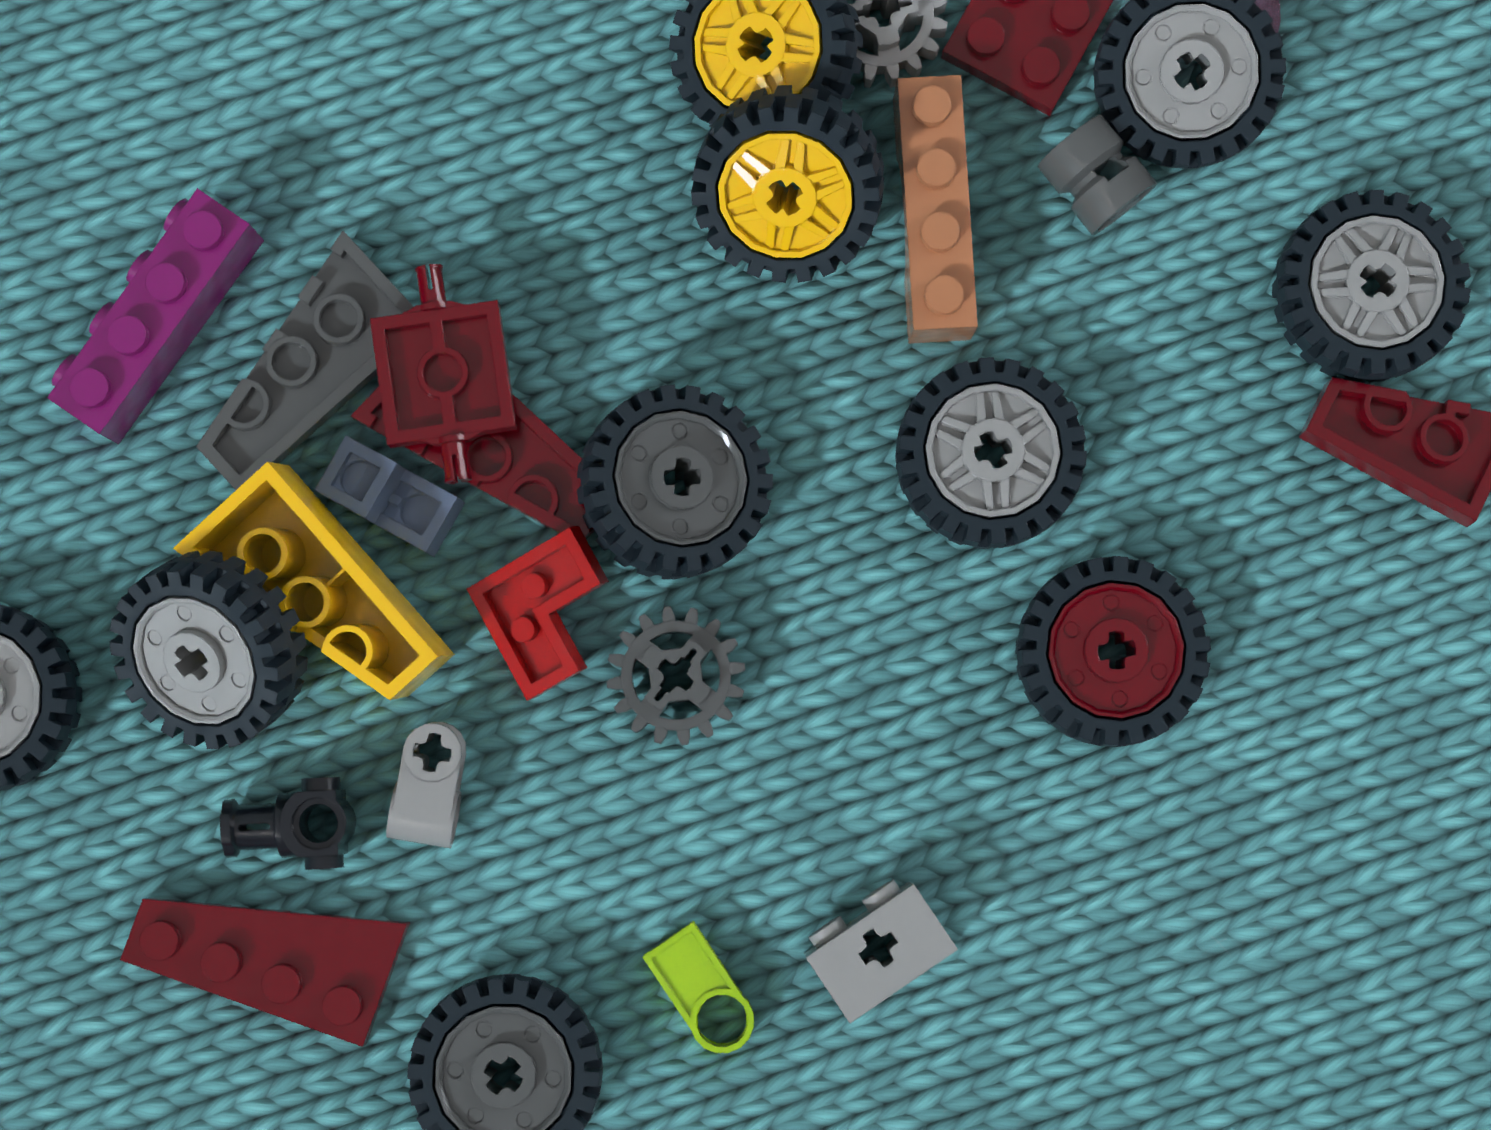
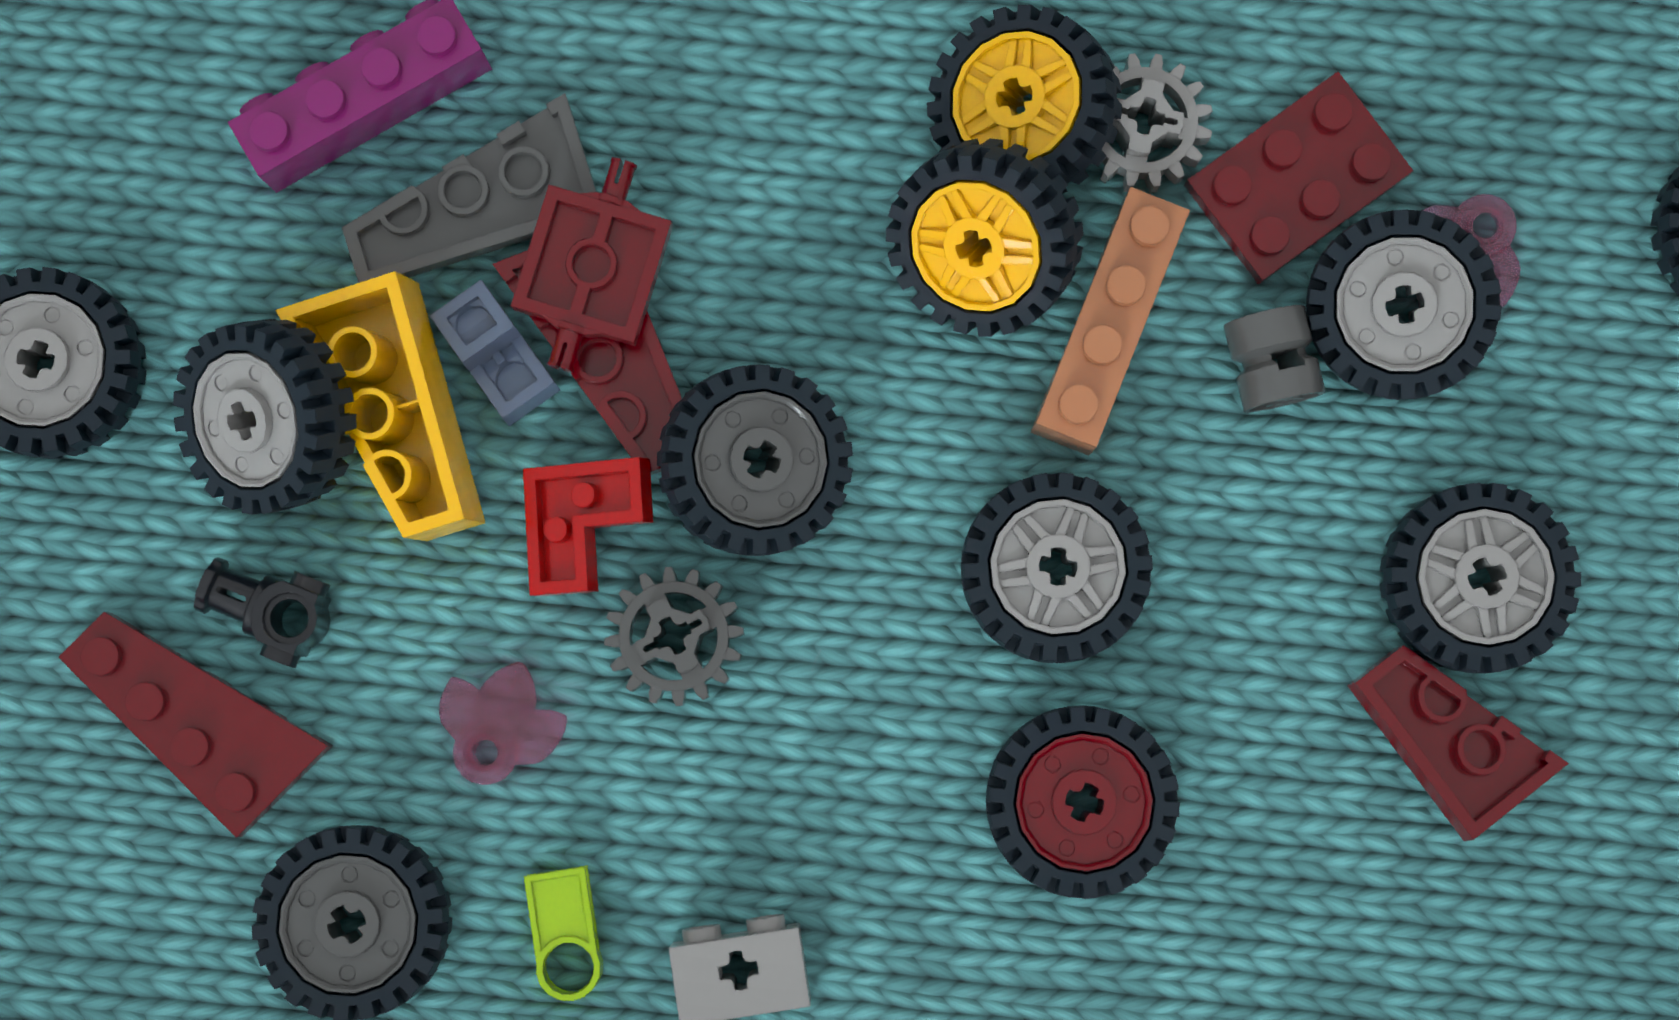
camera: 30 degrees right, 0 degrees up
(427, 798) = (398, 639): light grey piece -> none
(553, 820) = (503, 714): none -> clear pink plate

